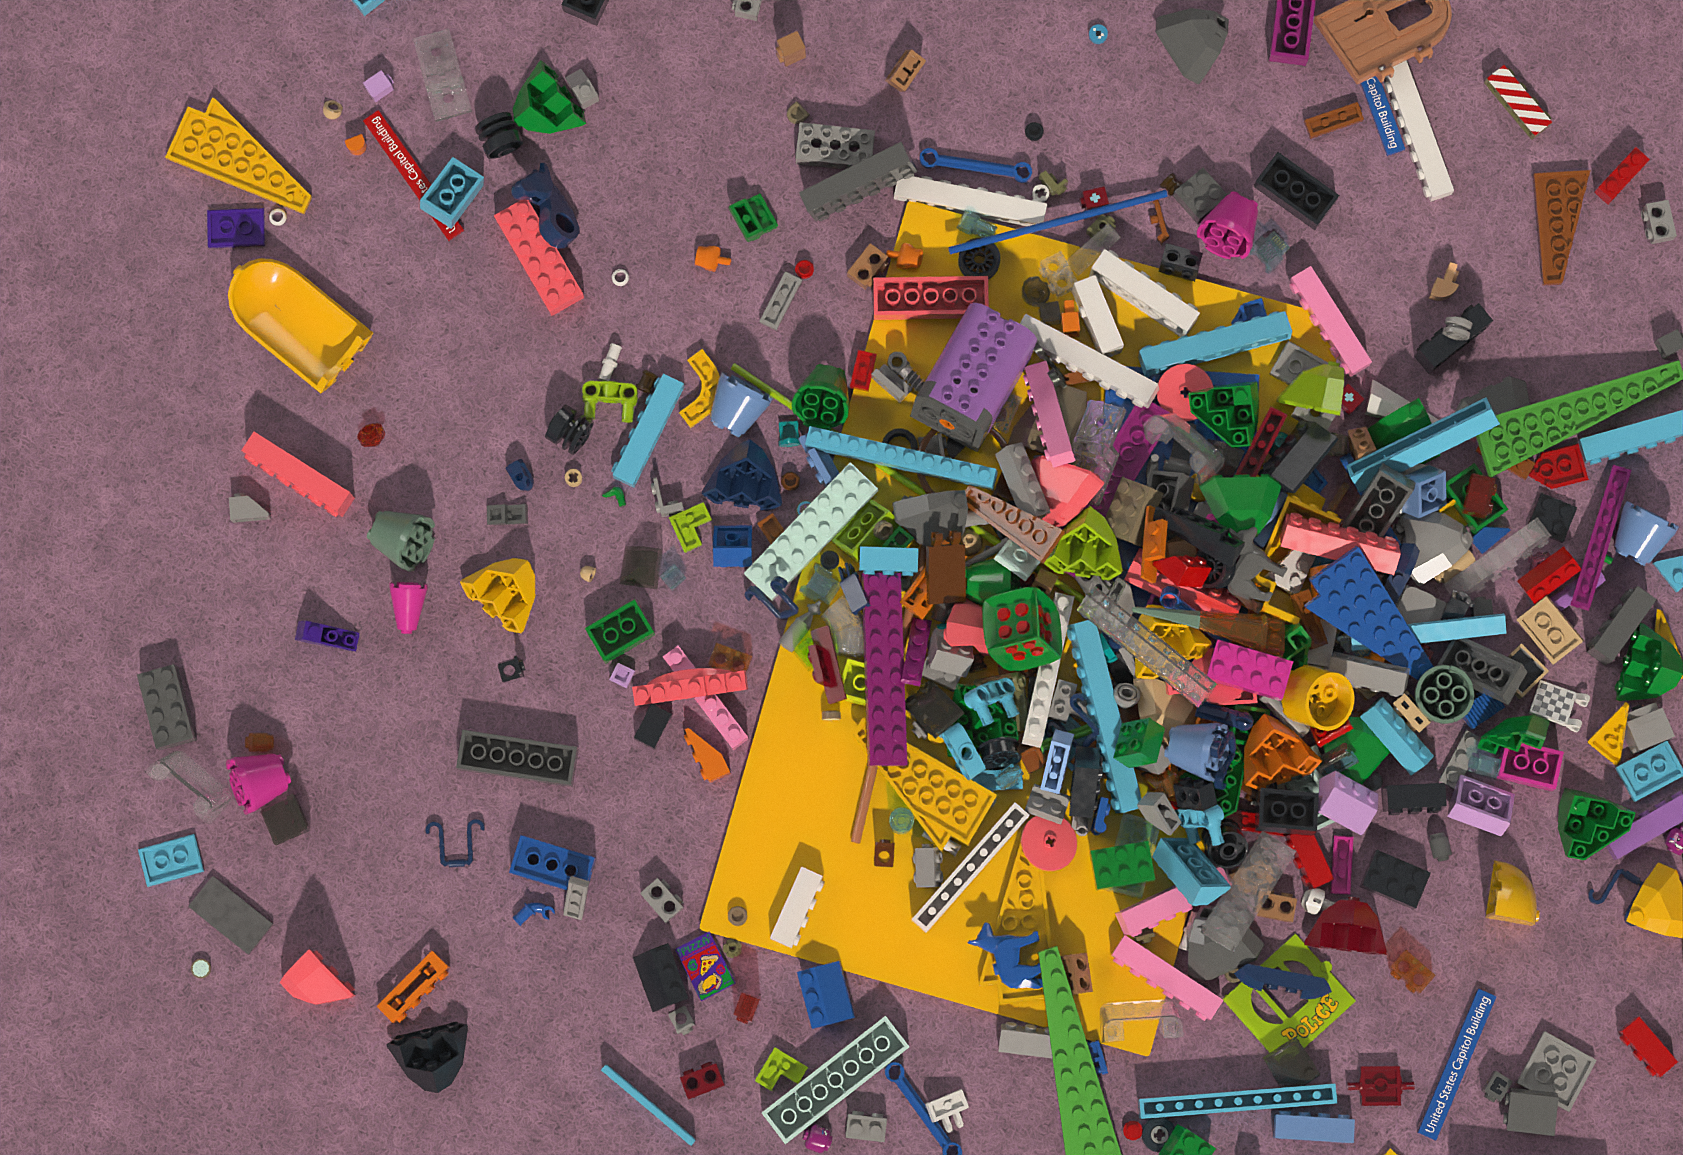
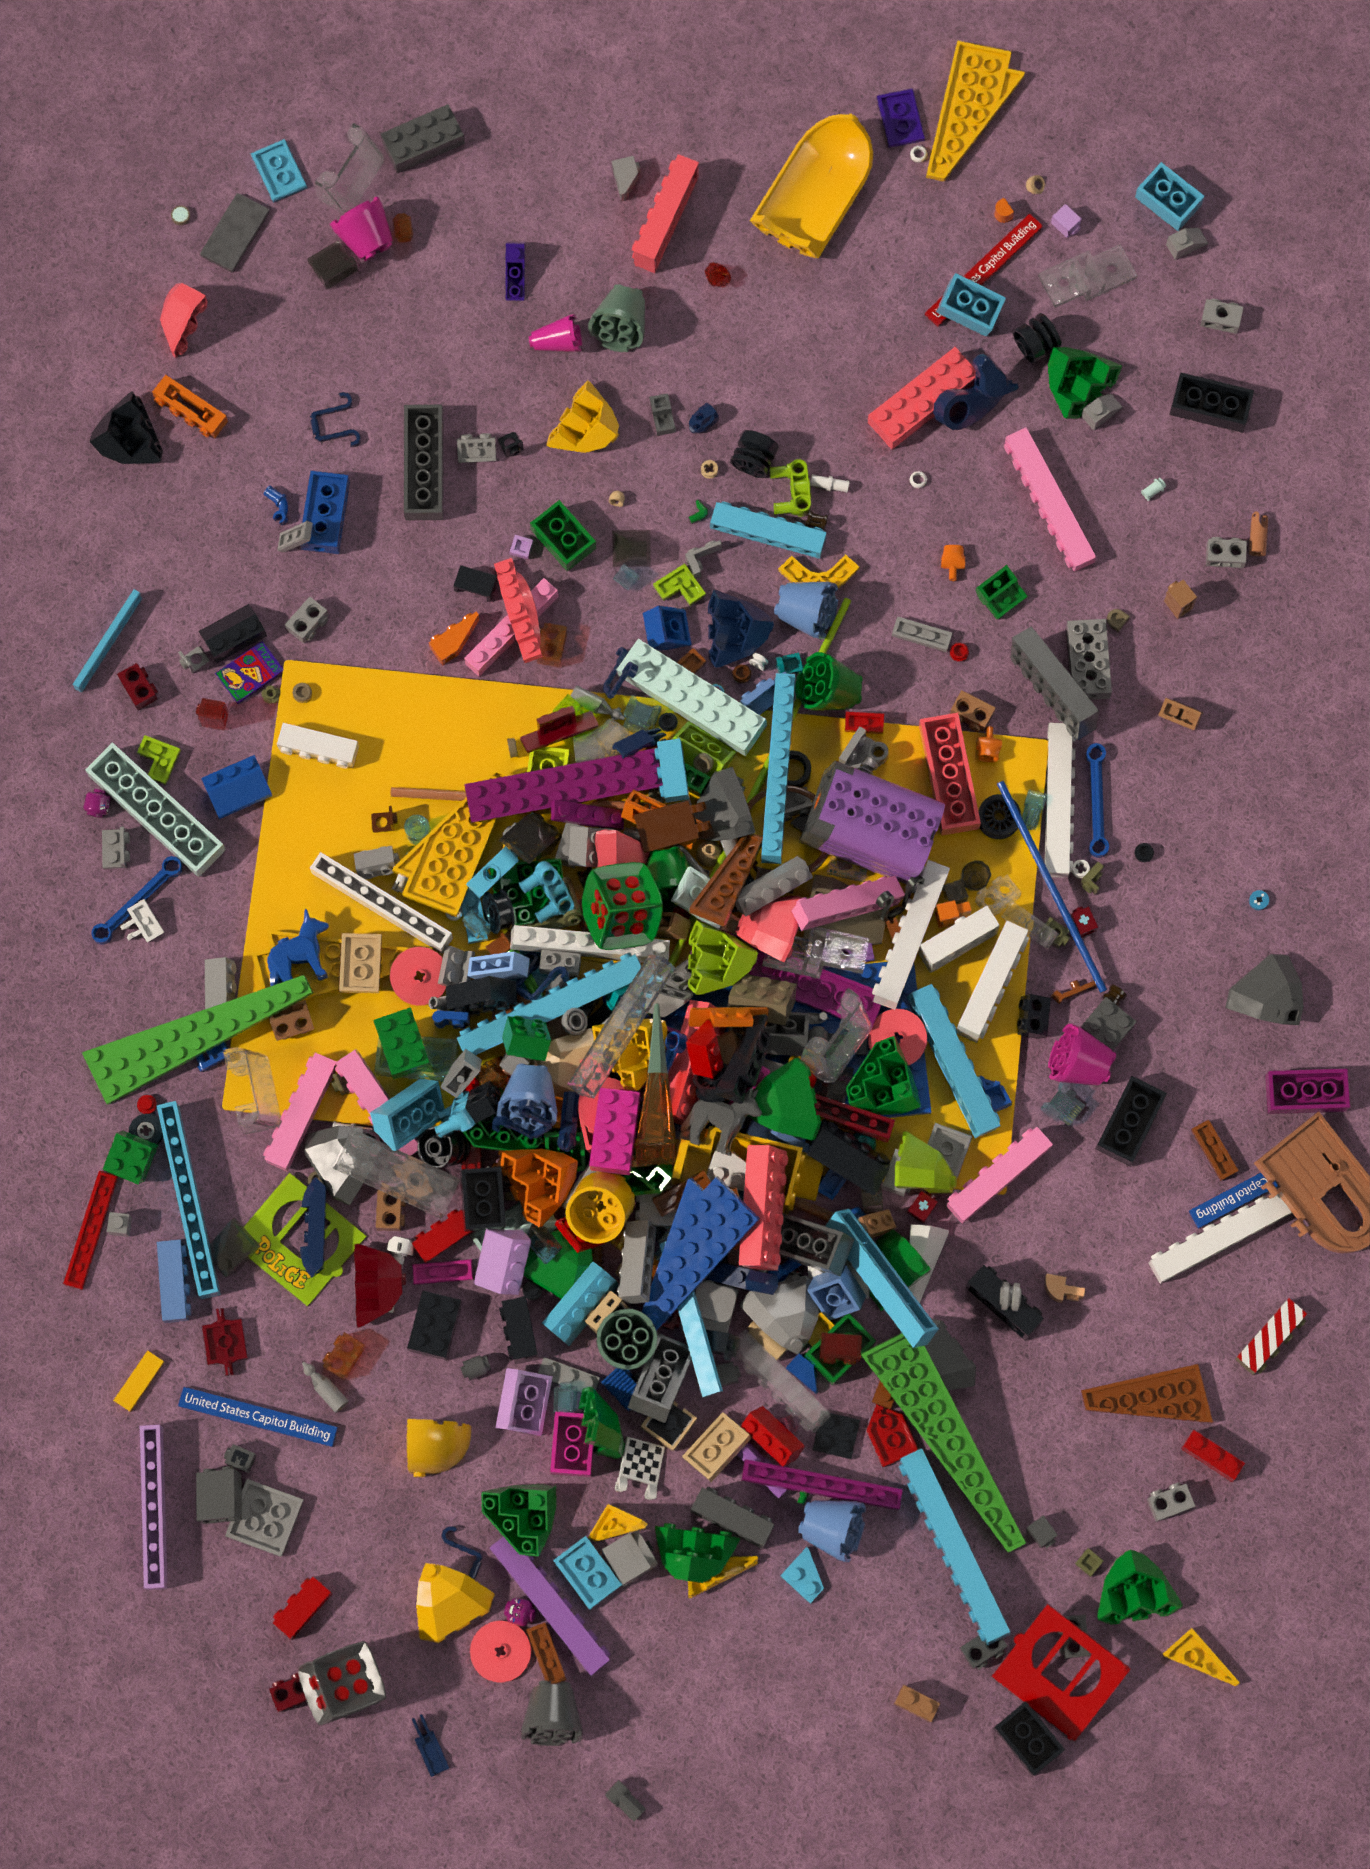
camera: 80 degrees right, 5 degrees down
(510, 704) = (476, 448): none -> light grey bracket
(665, 154) = (1049, 499): none -> bright pink brick
(671, 54) = (1154, 488): none -> light aqua pin
(781, 462) = (758, 661): none -> white bush
(1029, 896) = (360, 963): none -> tan plate
(1440, 993) = (326, 1388): none -> light grey wheel

